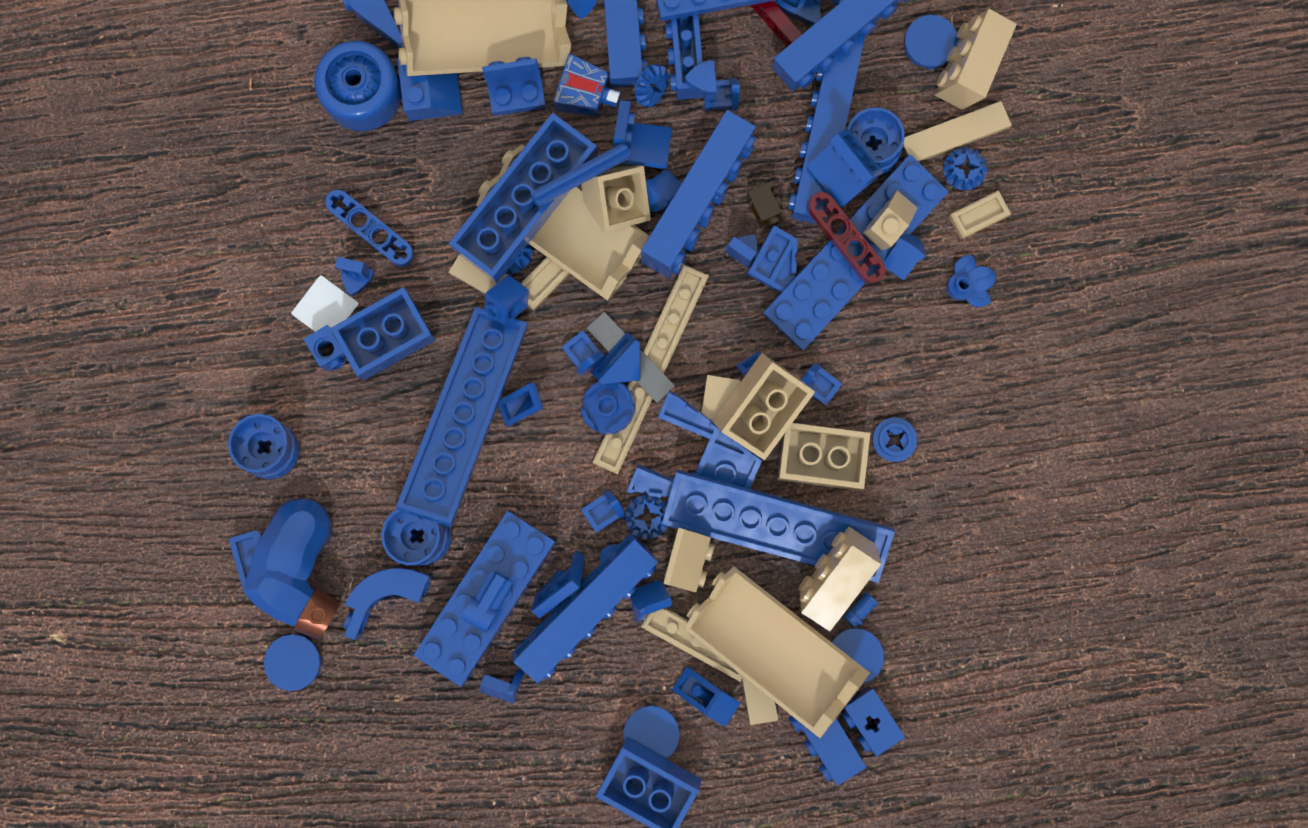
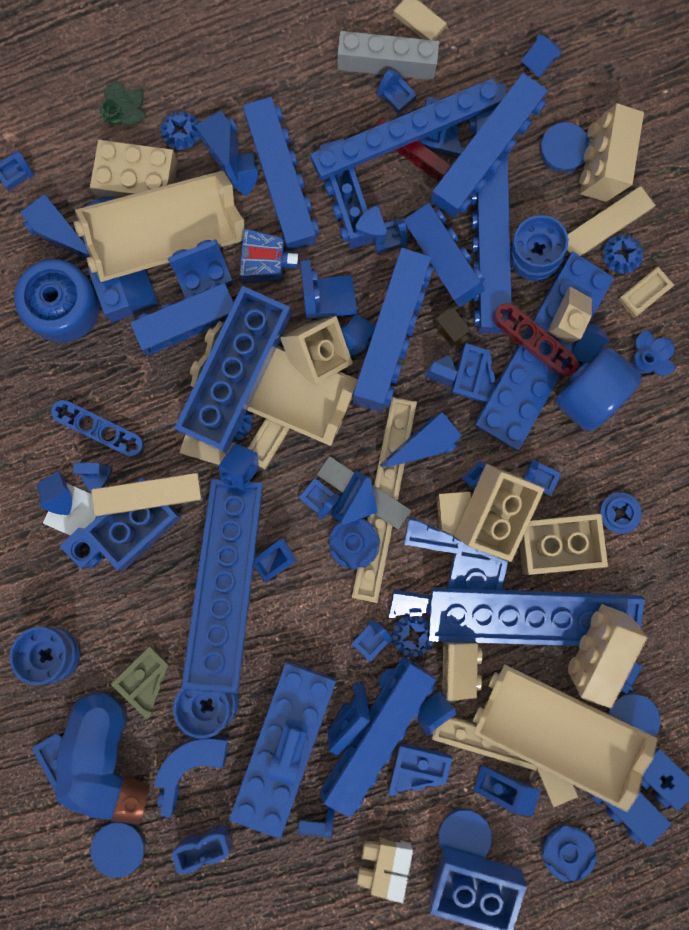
camera: 15 degrees left, 0 degrees up
(310, 286) = (55, 494): none -> blue tile
(357, 497) = (142, 680): none -> olive wing
(384, 680) = (202, 849): none -> blue brick
(405, 305) = (146, 494): none -> tan tile
(483, 134) = (183, 319): none -> blue brick
(567, 732) = (390, 868): none -> tan hips
(580, 174) = (281, 337): blue axle -> none
(619, 653) = (418, 768): none -> blue wing
(643, 91) = (324, 250): blue gear -> none
(711, 318) = (432, 438): none -> blue slope
(755, 776) = (568, 853): none -> blue tile
(773, 128) = (445, 255): none -> blue brick
(844, 168) = (520, 277): blue bracket -> none
(898, 302) = (598, 389): none -> blue wheel

